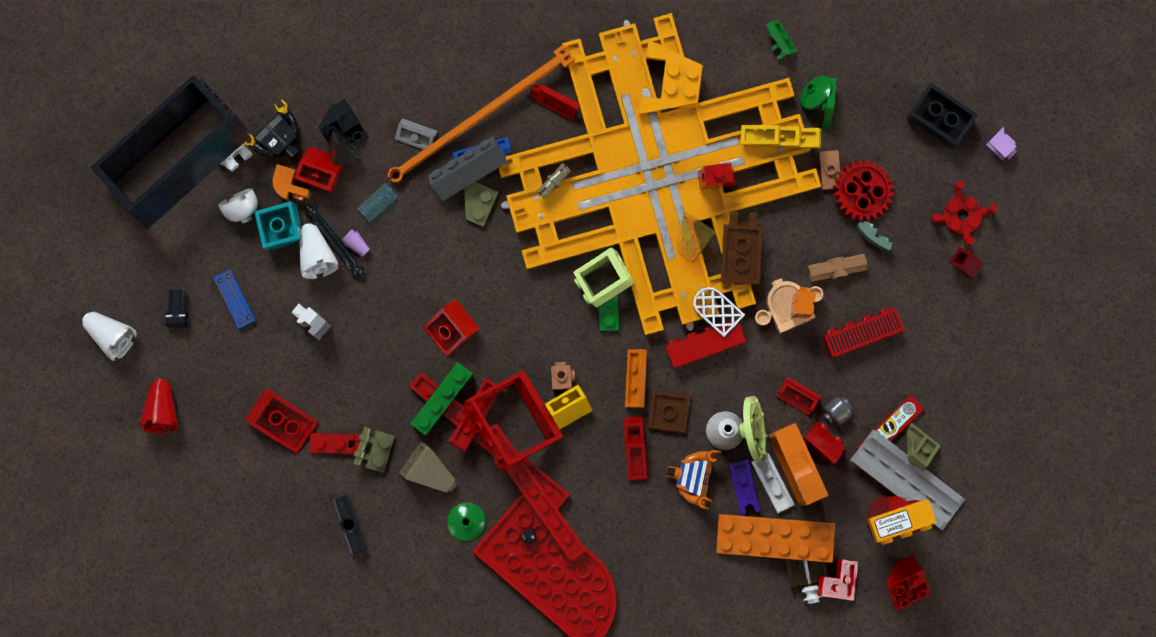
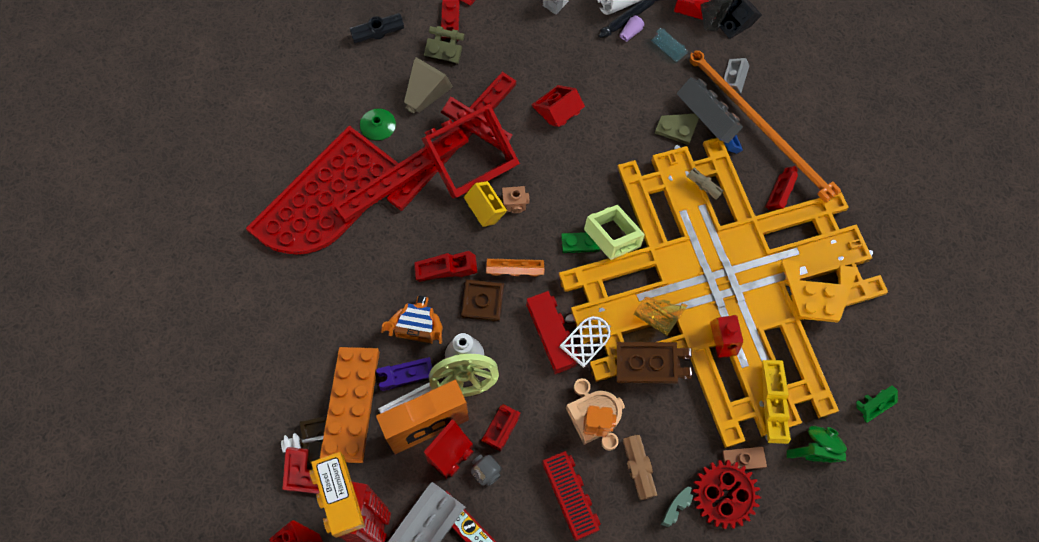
camera: 85 degrees right, 15 degrees down
(441, 399) = (504, 104): green arch -> none
(529, 536) = (360, 170): black hinge -> none

